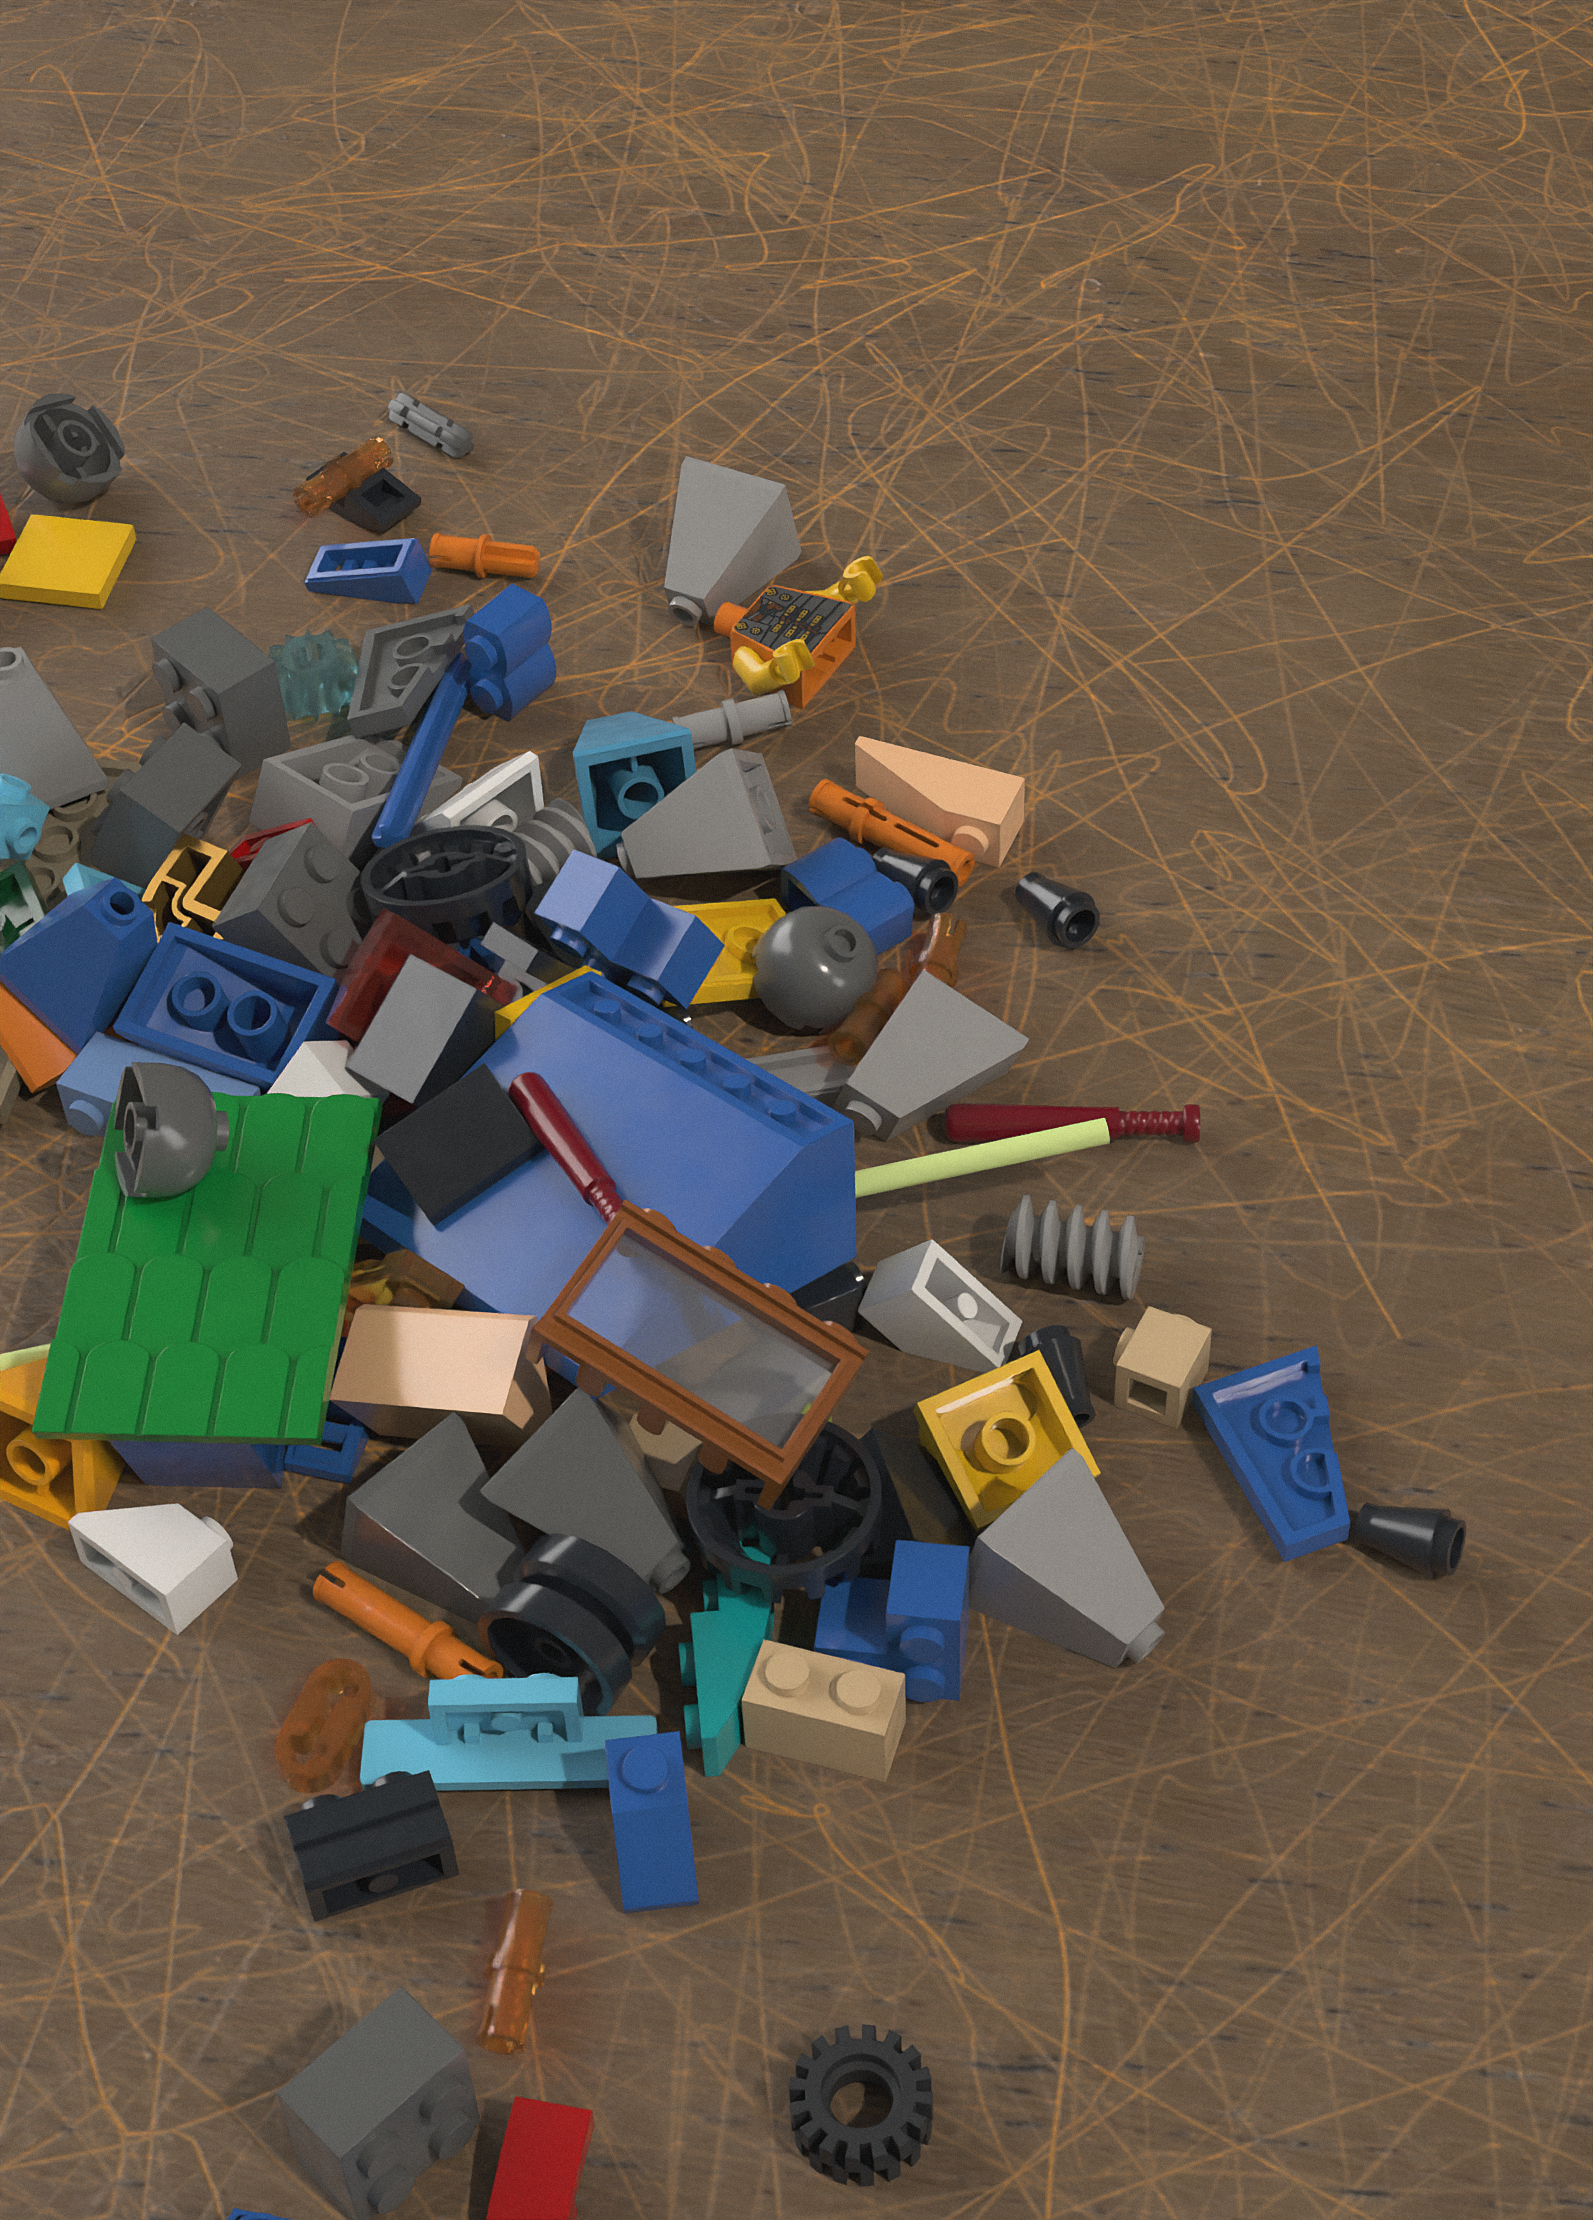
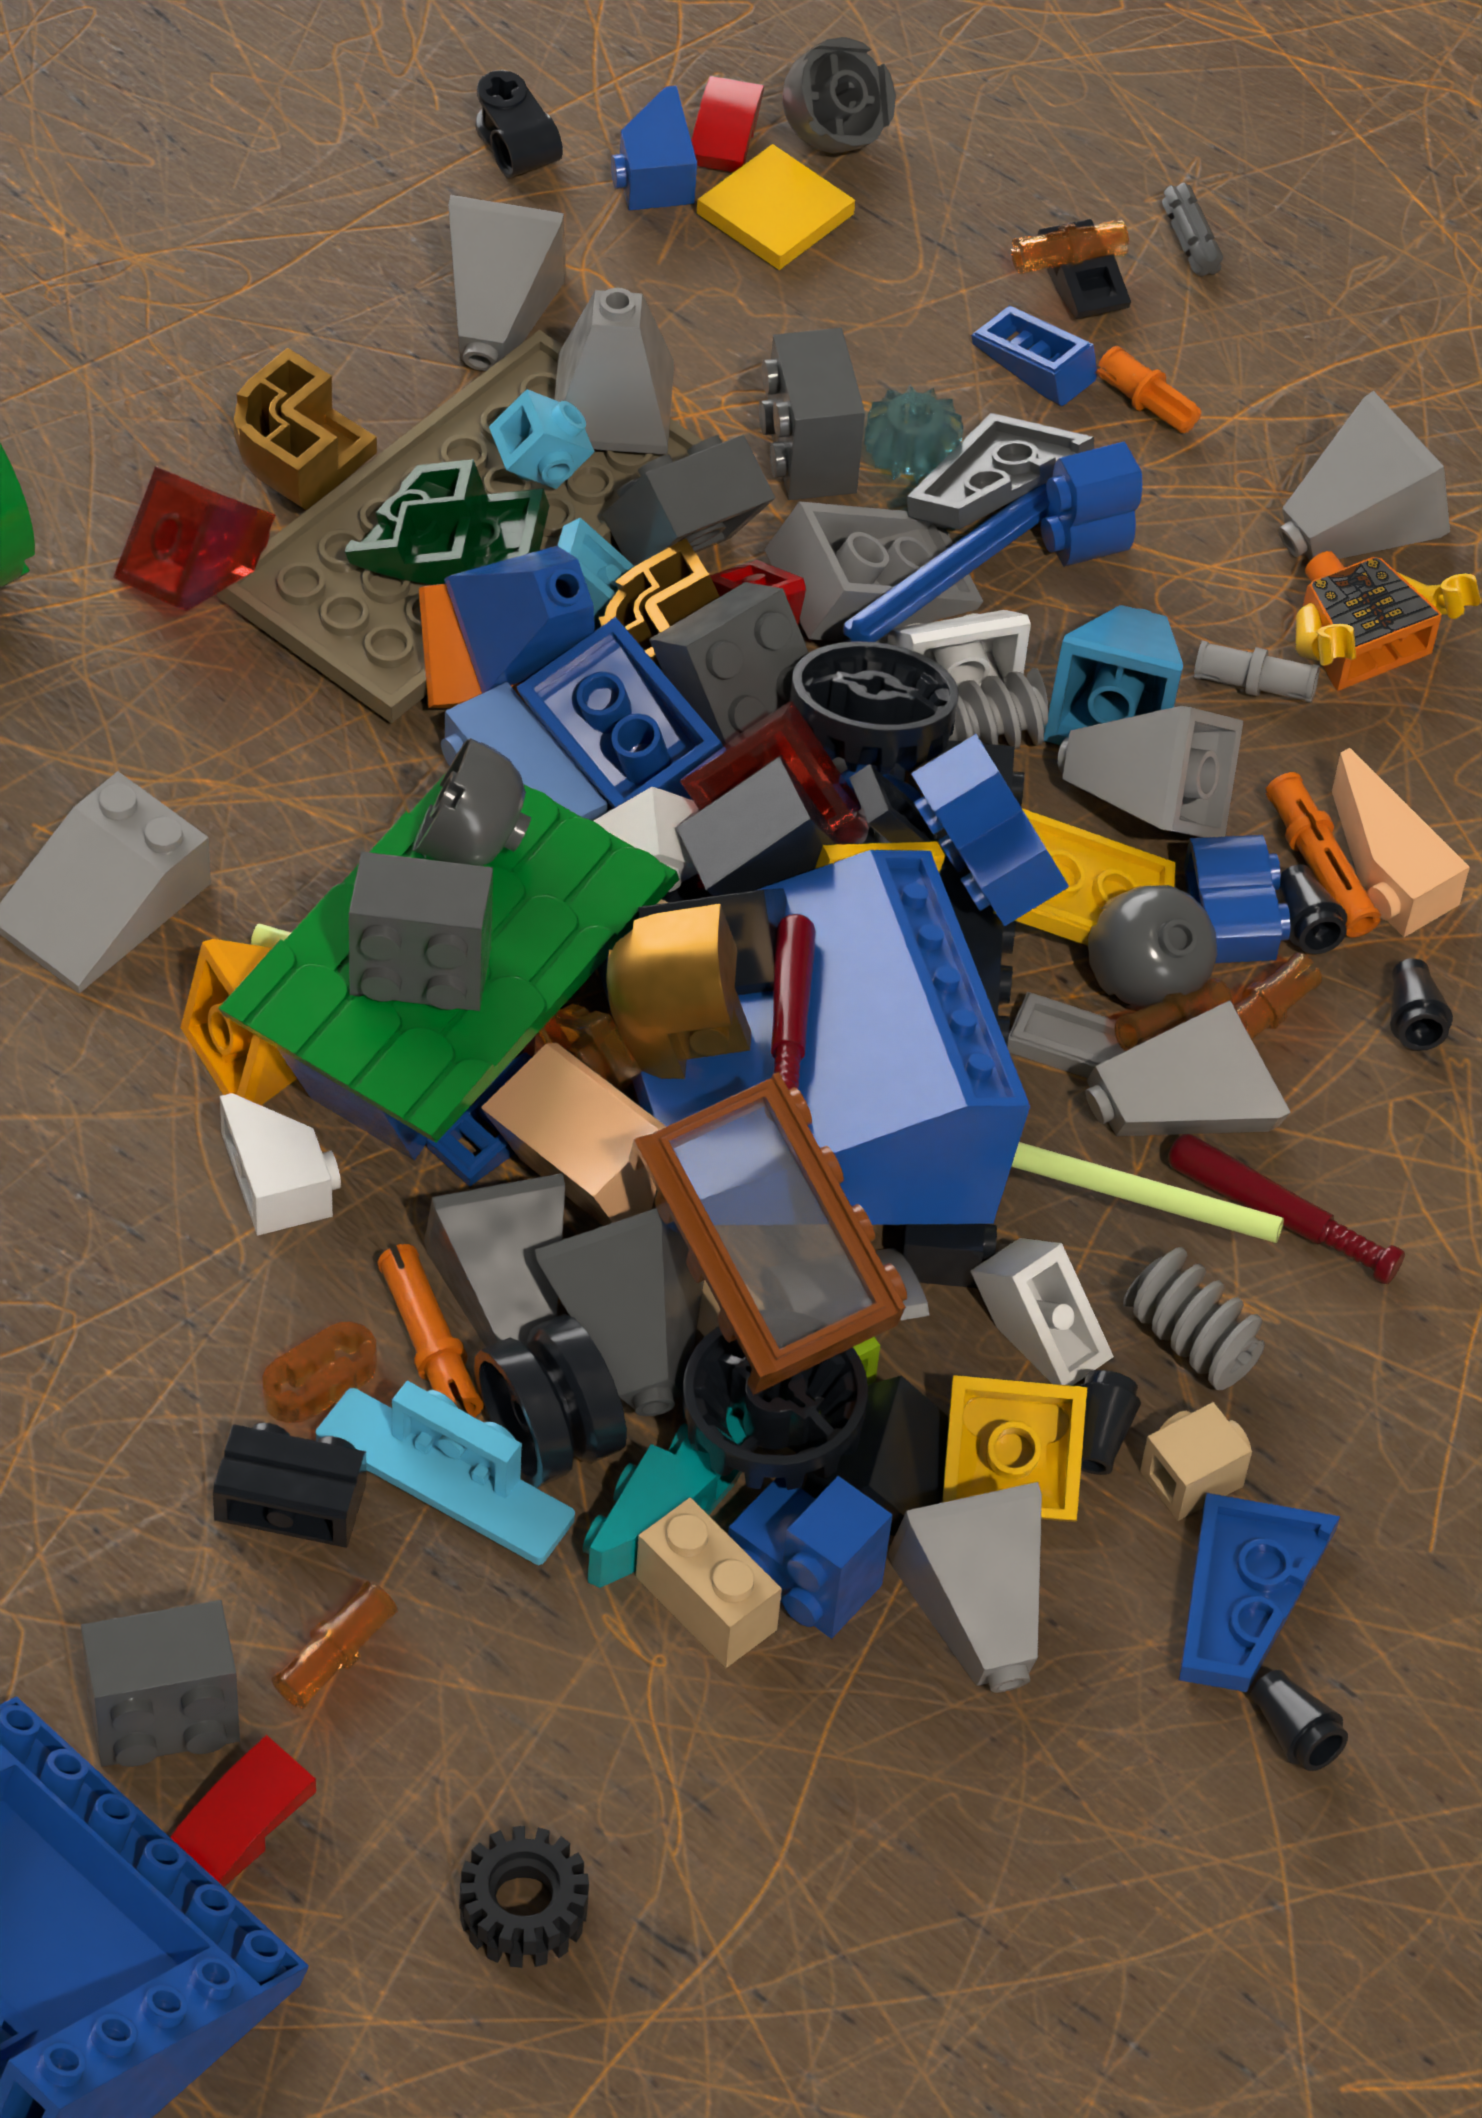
camera: 25 degrees right, 5 degrees up
(194, 1255) = (420, 931): none -> dark grey brick
(460, 1191) = (677, 990): none -> pearl gold brick
(651, 1822) = (511, 1589): blue slope -> none

